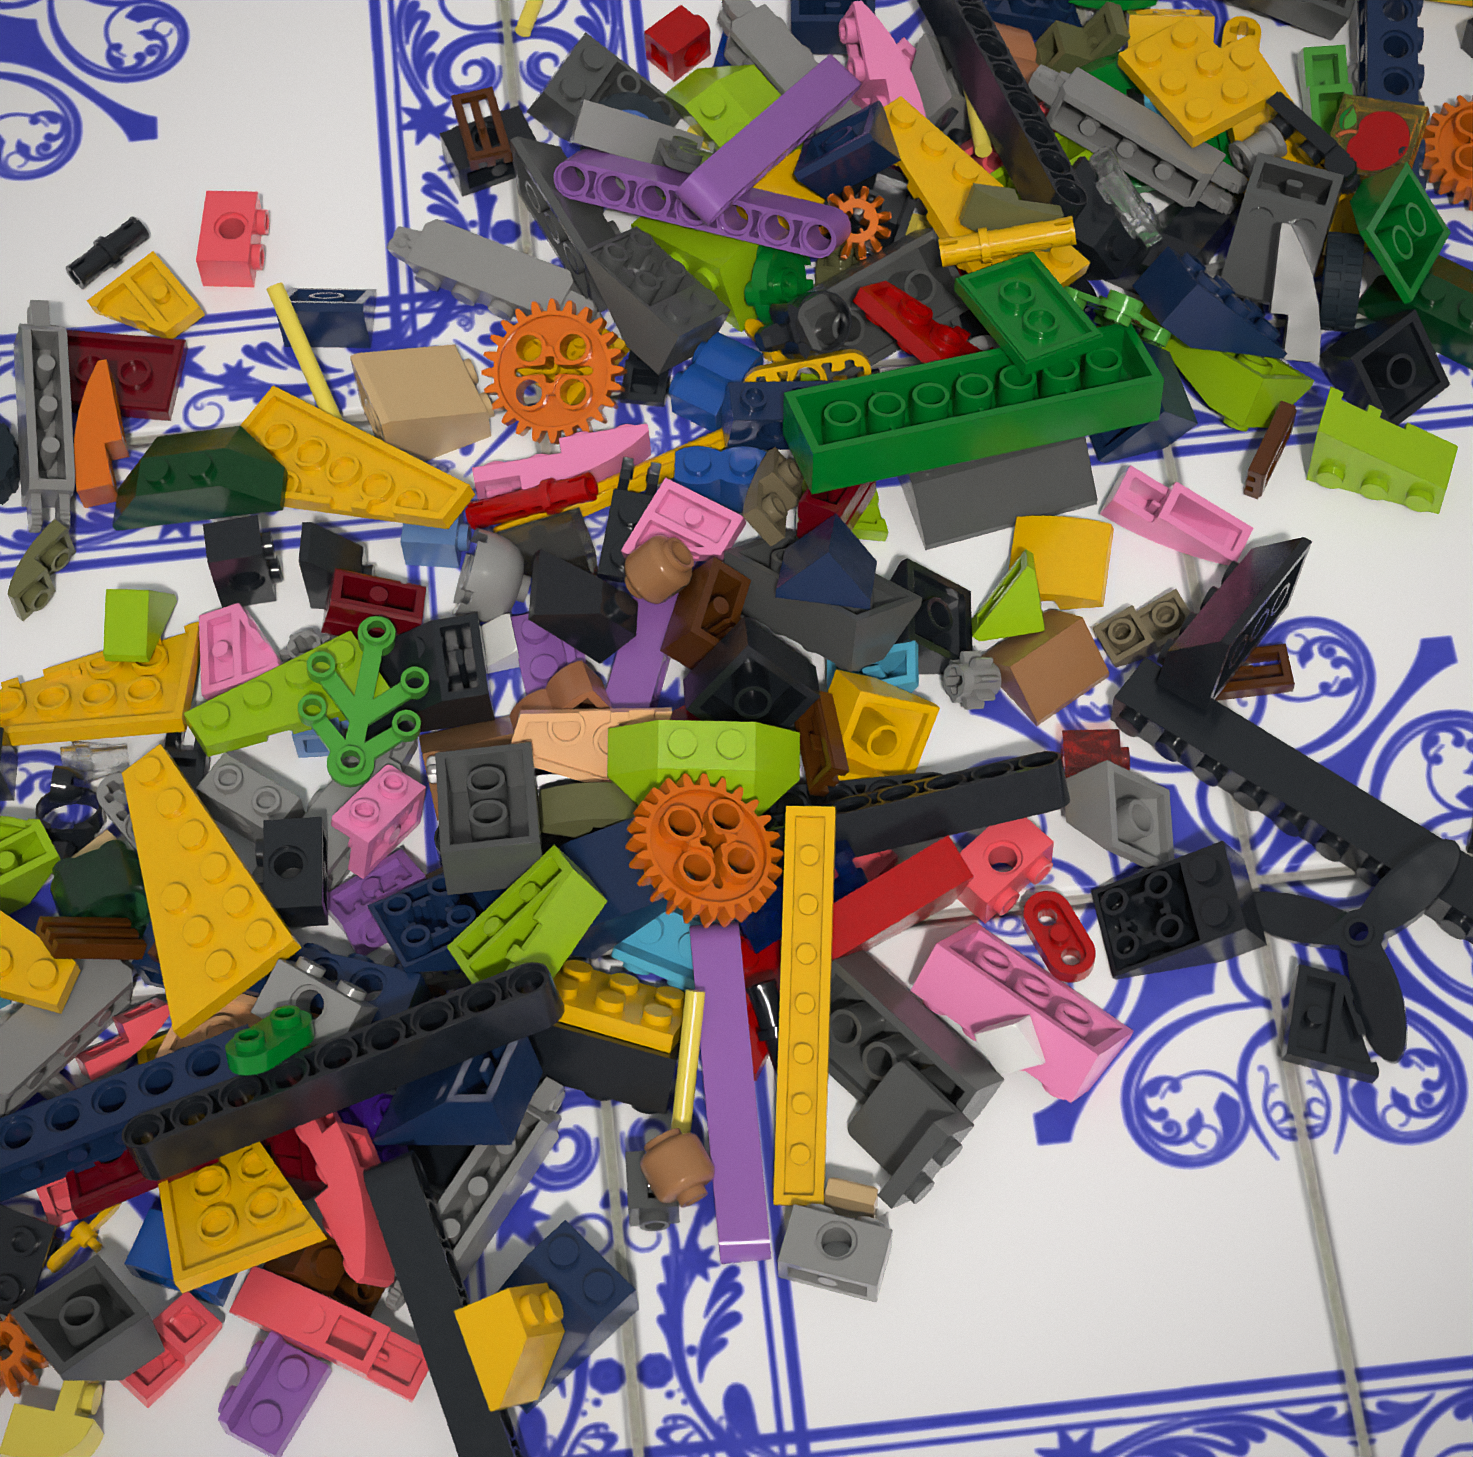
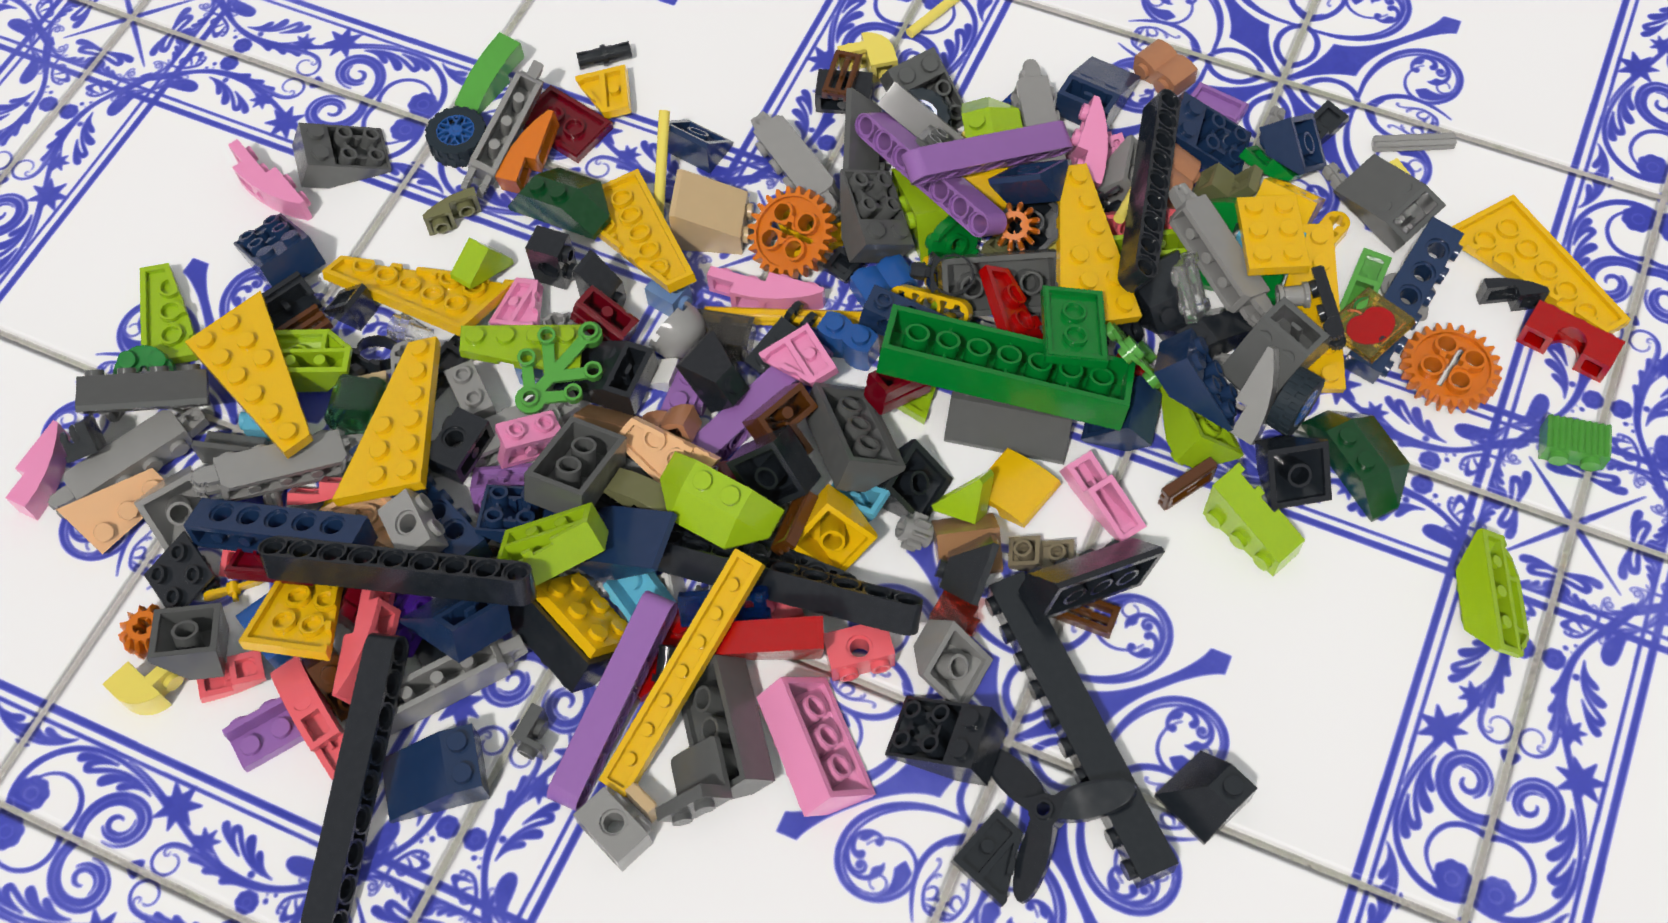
camera: 30 degrees right, 0 degrees up
(66, 785) = (380, 334): black hinge -> none
(90, 938) = (329, 425): reddish brown tile -> none
(231, 239) = (671, 77): coral brick -> none
(270, 1041) = (366, 531): green plate -> none
(509, 74) = (876, 53): none -> light yellow brick
(513, 1342) = (390, 779): yellow slope -> none
(548, 497) = (737, 302): red pin -> none
(658, 569) = (768, 374): medium nougat head -> none
(677, 1167) = (550, 728): medium nougat head -> none
(678, 42) = (991, 77): red brick -> none
(688, 1060) = (586, 685): light yellow bar -> none
(704, 850) = (647, 540): orange gear -> none
(771, 494) = (858, 364): dark tan slope -> none
(828, 568) = (861, 422): dark blue slope -> none
(1001, 208) = (1094, 261): olive slope -> none
(1007, 241) = (1076, 274): yellow pin -> none
(1011, 1045) = (787, 761): white slope -> none
(1060, 939) = (866, 714): red plate -> none
(1080, 685) = (968, 568): none -> black slope
(1399, 227) = (1348, 386): green slope -> none

